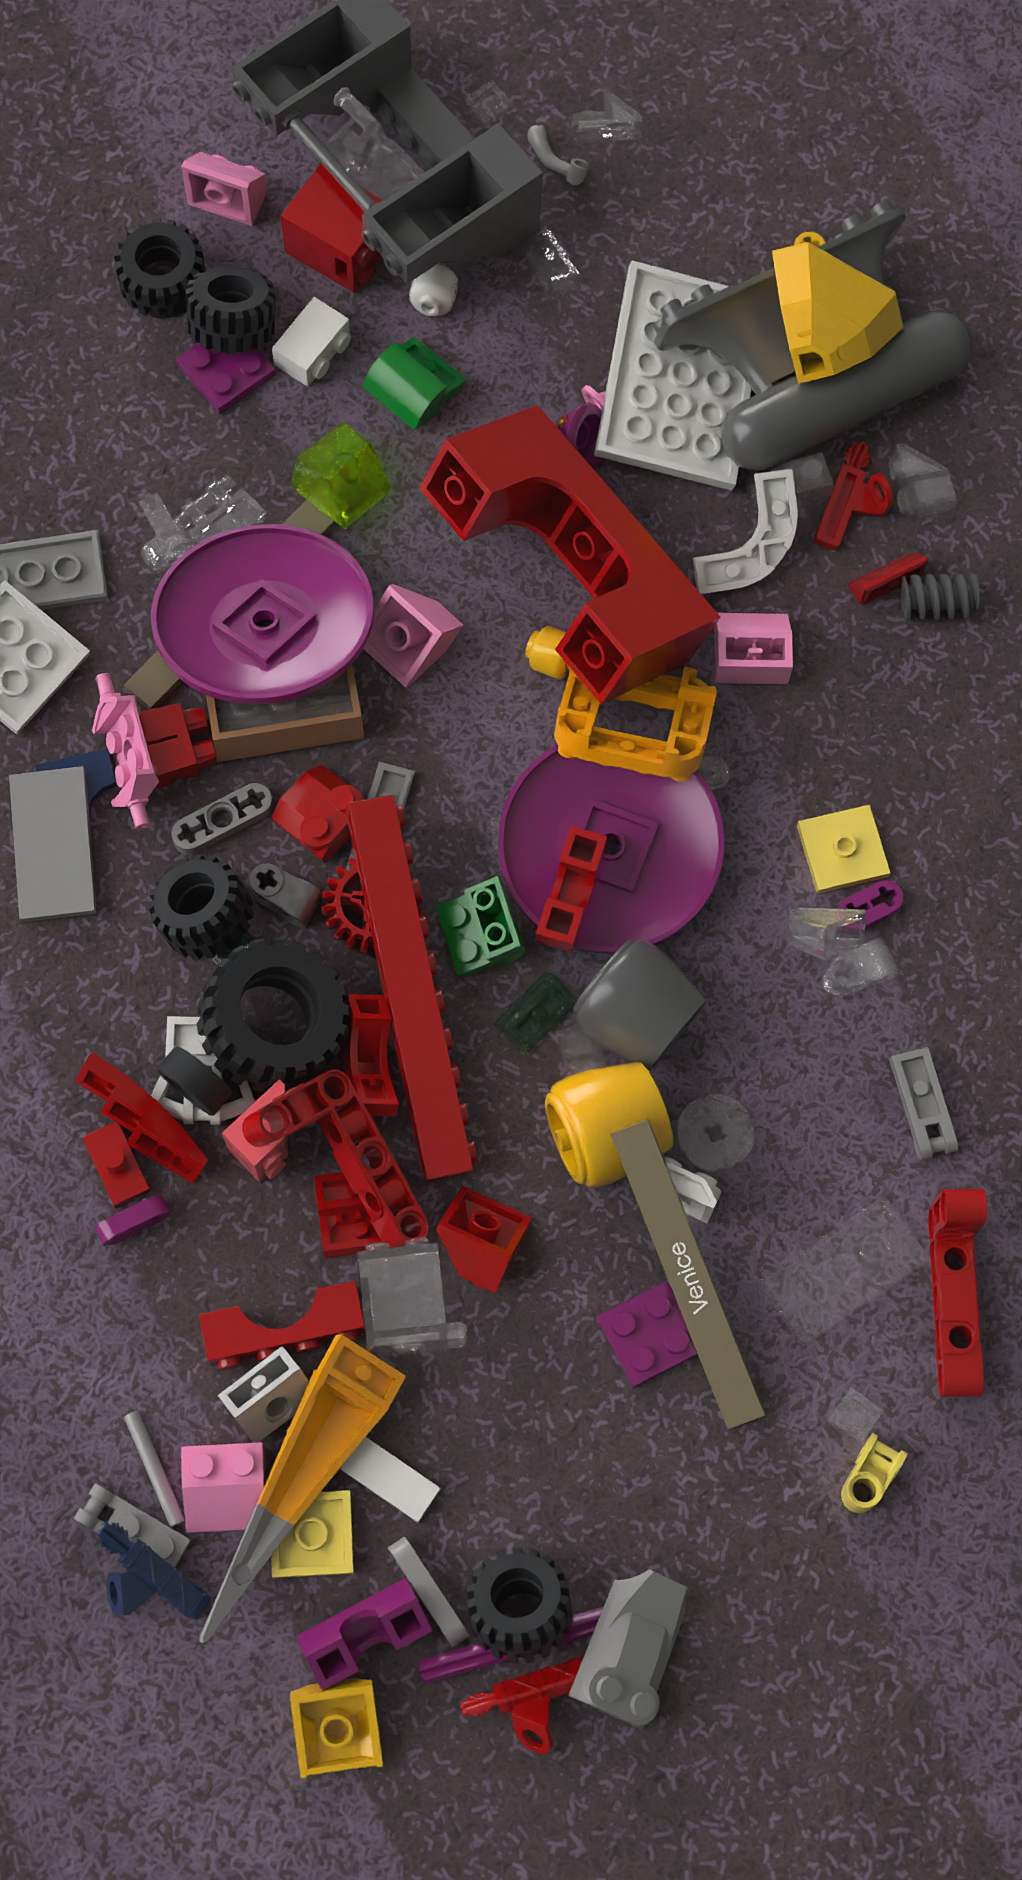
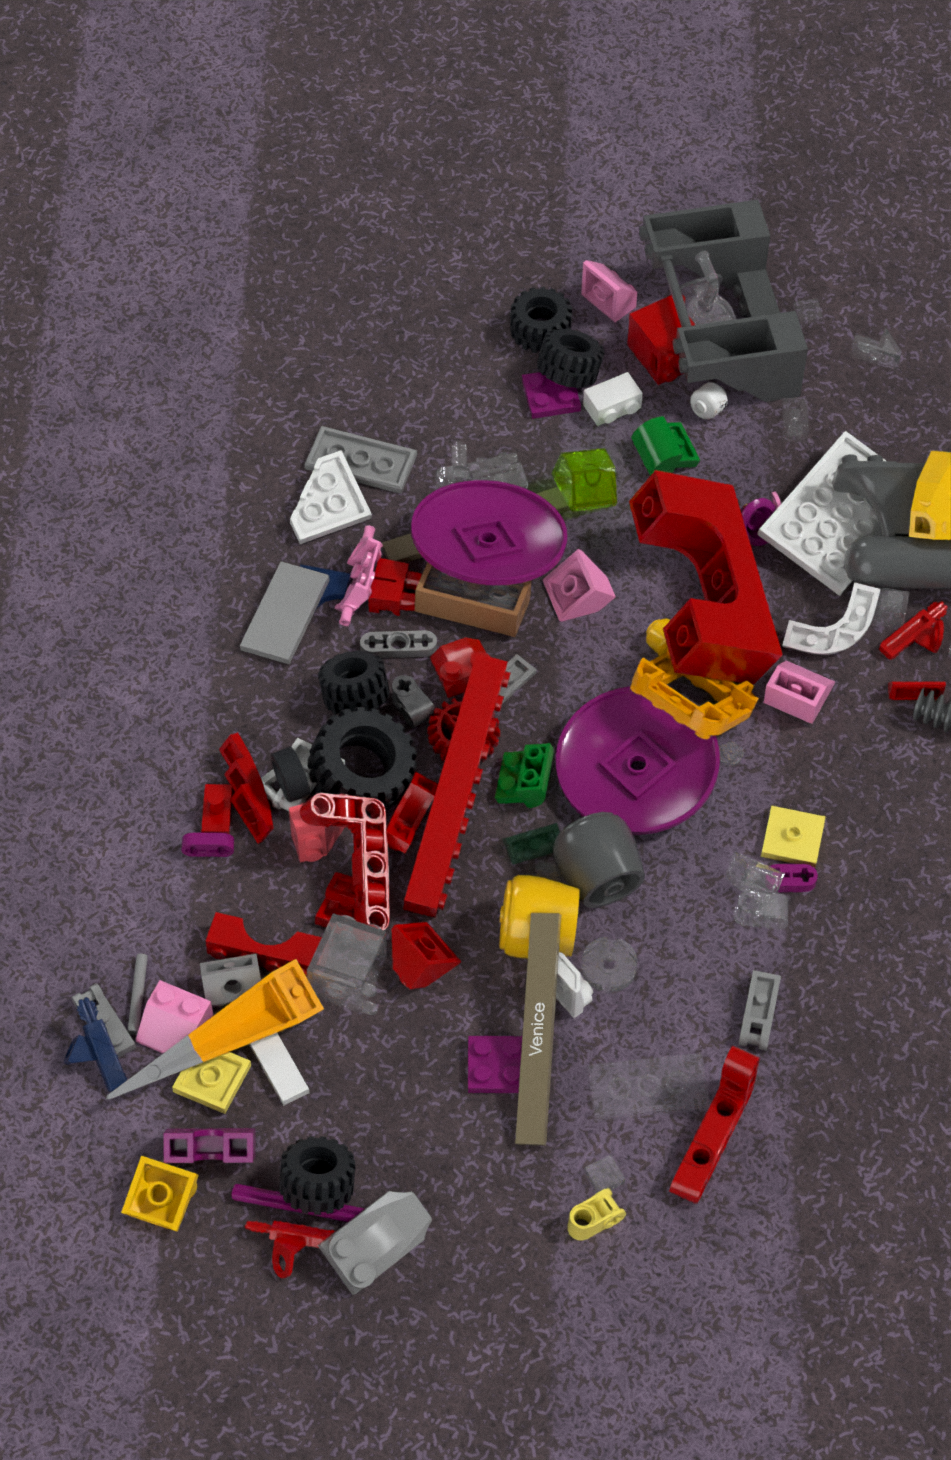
camera: 30 degrees right, 15 degrees down
(428, 1591) = (265, 1145): light grey beam -> none
(572, 889) = (607, 758): red arch -> none
(574, 172) = (840, 370): light grey piece -> none

